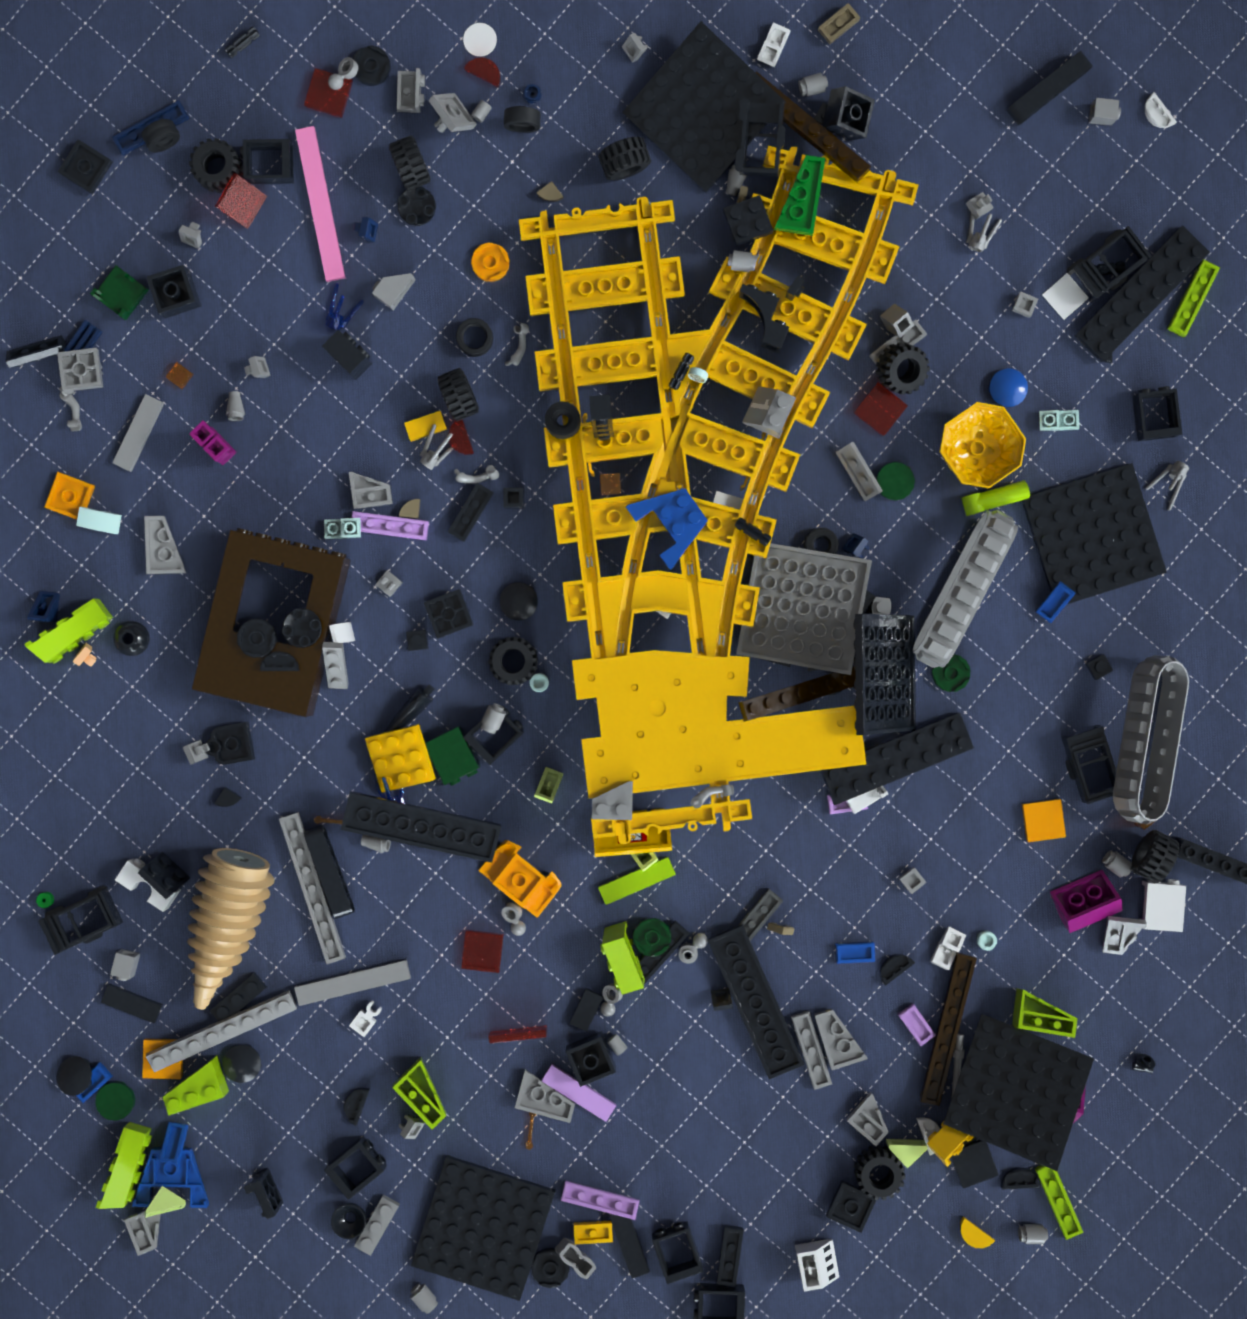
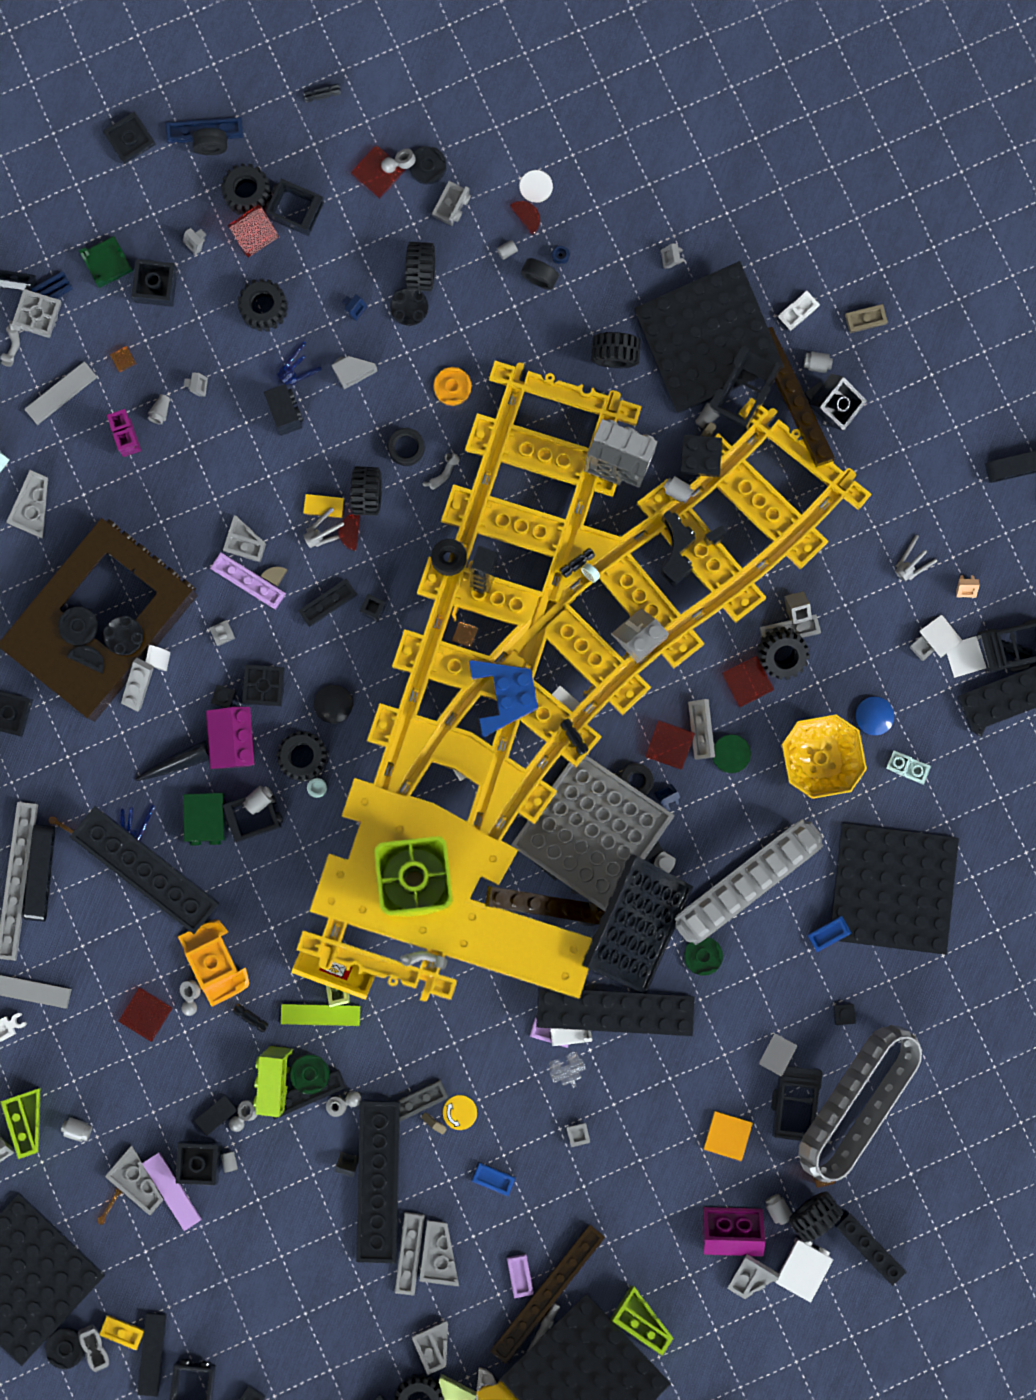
camera: 25 degrees right, 5 degrees down
(271, 255) = (258, 290): none -> black tyre
(320, 204) = (323, 265): bright pink tile -> none
(342, 528) = (203, 563): light aqua slope -> none
(376, 844) = (95, 866): light grey cone -> none
(400, 757) = (156, 797): yellow plate -> none
(441, 674) = (230, 737): none -> magenta slope
(451, 113) = (479, 239): light grey tile -> none
(470, 1079) = (76, 1129): none -> light grey brick
(490, 473) = (363, 574): light grey piece -> none
(518, 1034) = (141, 1108): clear red tile -> none
(548, 785) = (280, 886): yellowish green slope -> none
(550, 193) = (535, 349): dark tan tile -> none
(578, 912) = (250, 1018): none -> black axle
(600, 1200) = (143, 1304): lavender tile -> none
(614, 804) = (330, 926): light grey wing -> none
(674, 703) = (397, 860): none -> lime piece
(676, 252) = (620, 454): none -> piece
(798, 908) = (459, 1112): none -> yellow sticker
(802, 203) = (755, 465): green wing -> none
(837, 498) = (670, 744): none -> clear red tile
(882, 822) = (567, 1073): none -> clear hips
(894, 967) = (524, 1210): black tile -> none
(947, 948) = (582, 1216): white slope -> none
(980, 205) = (922, 538): light grey tile -> none
(986, 940) = (622, 1225): light aqua tile -> none
(995, 498) = (816, 811): lime piece -> none
(1036, 287) = (941, 636): none -> white sticker
(1041, 231) = (967, 587): none -> light nougat tile
(1057, 729) = (778, 1054): none -> white sticker
(1173, 414) = (1016, 785): black window -> none
(1177, 473) = (997, 865): light grey plant -> none

